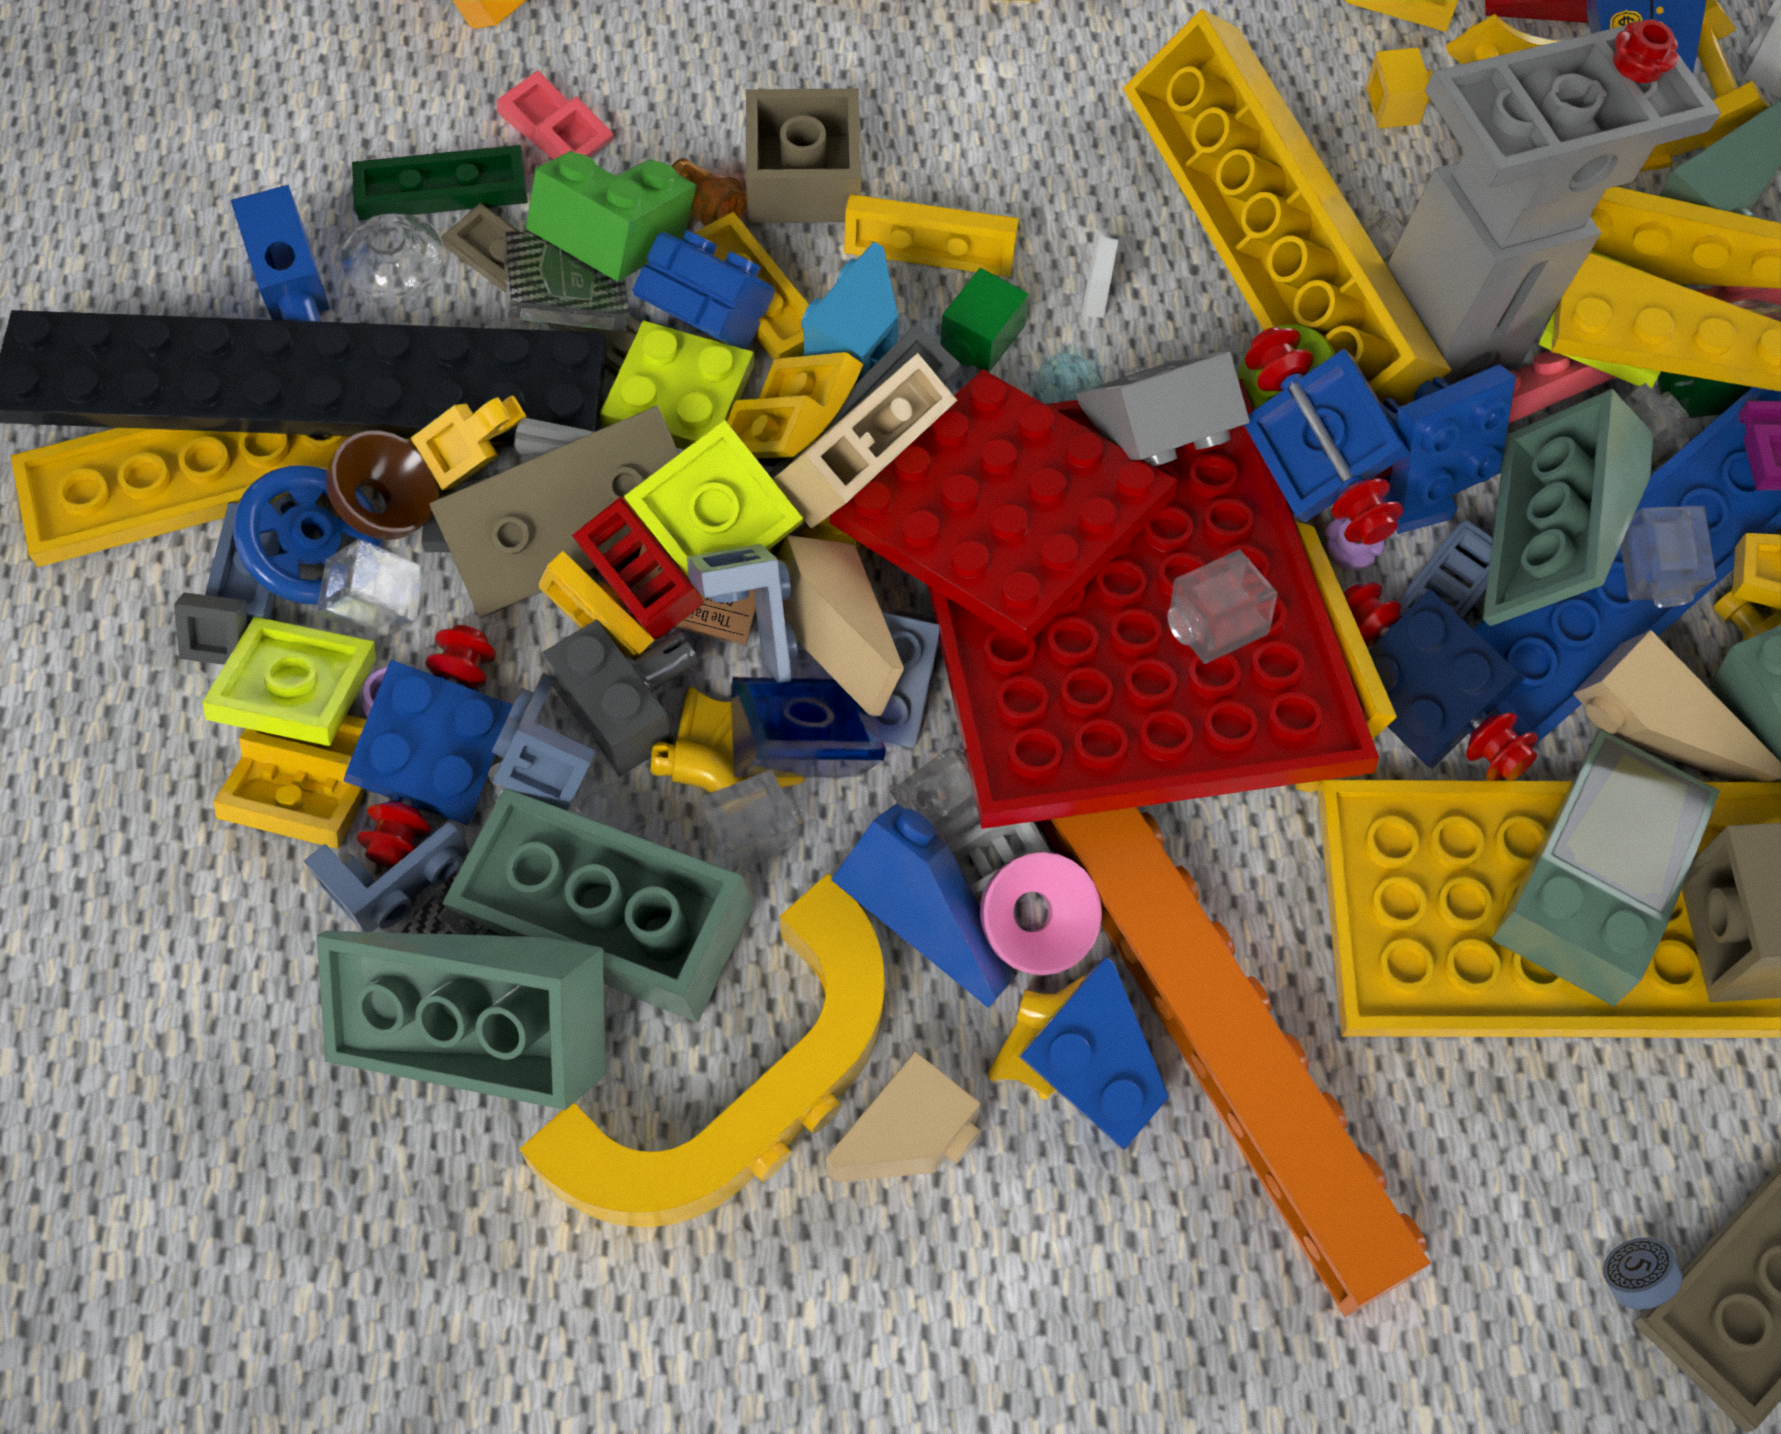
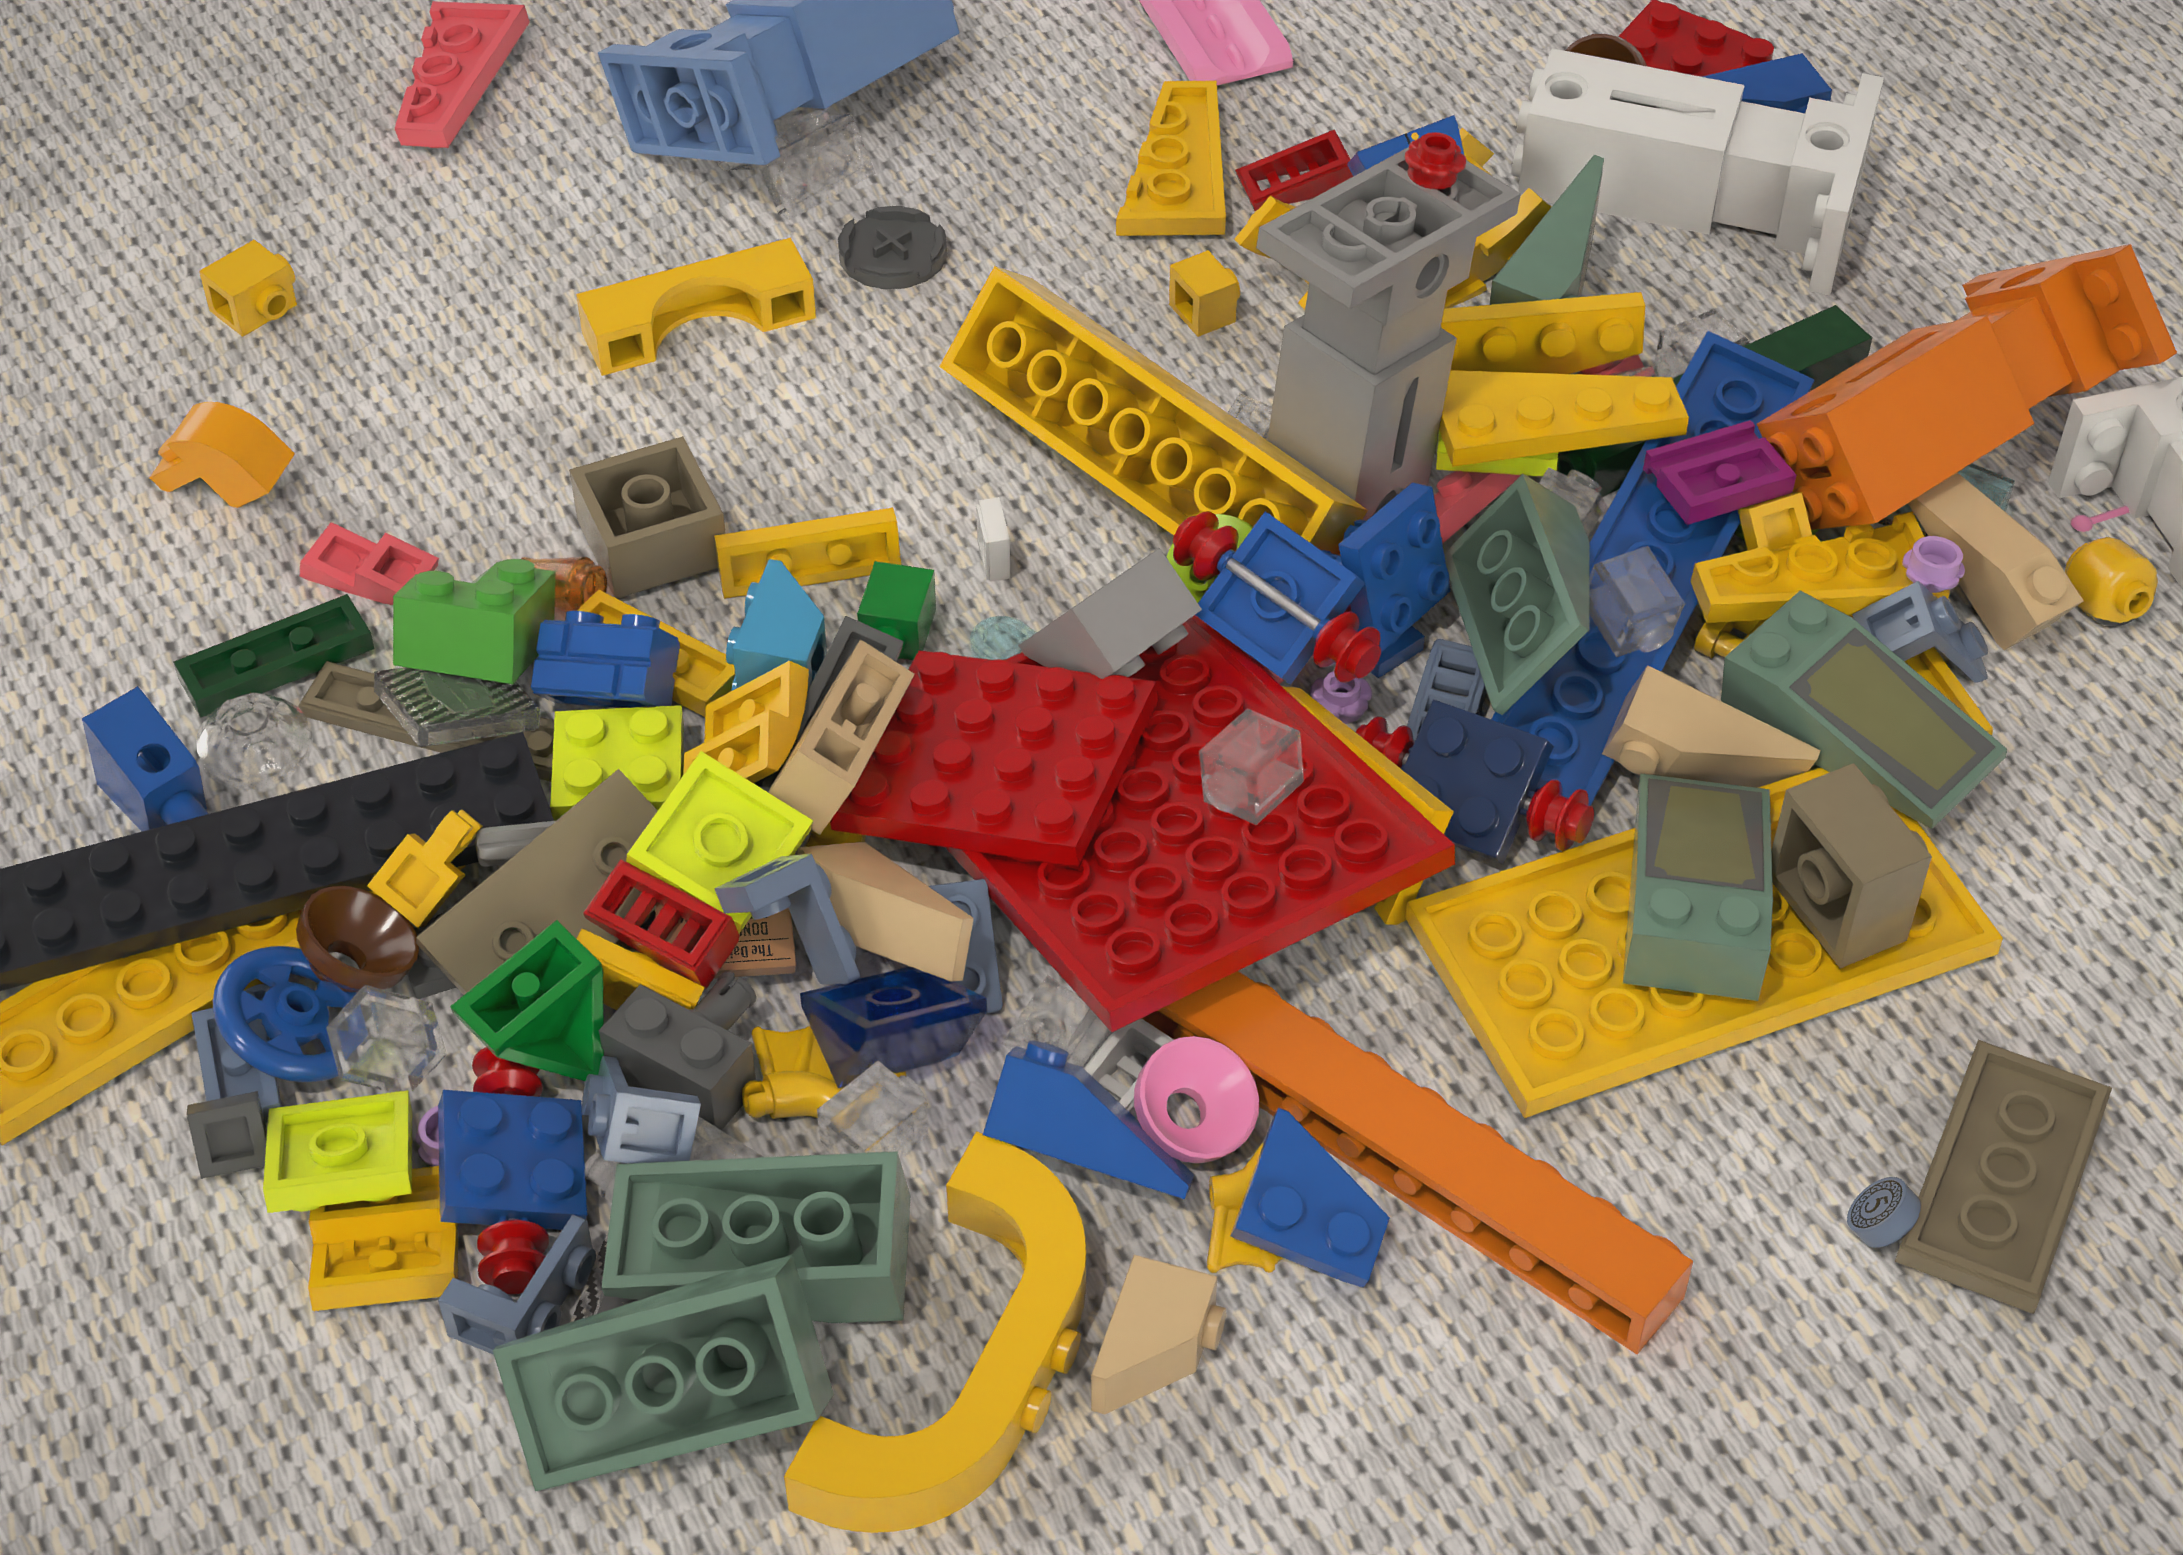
camera: 20 degrees left, 15 degrees down
(499, 613) = (541, 1006): none -> green slope

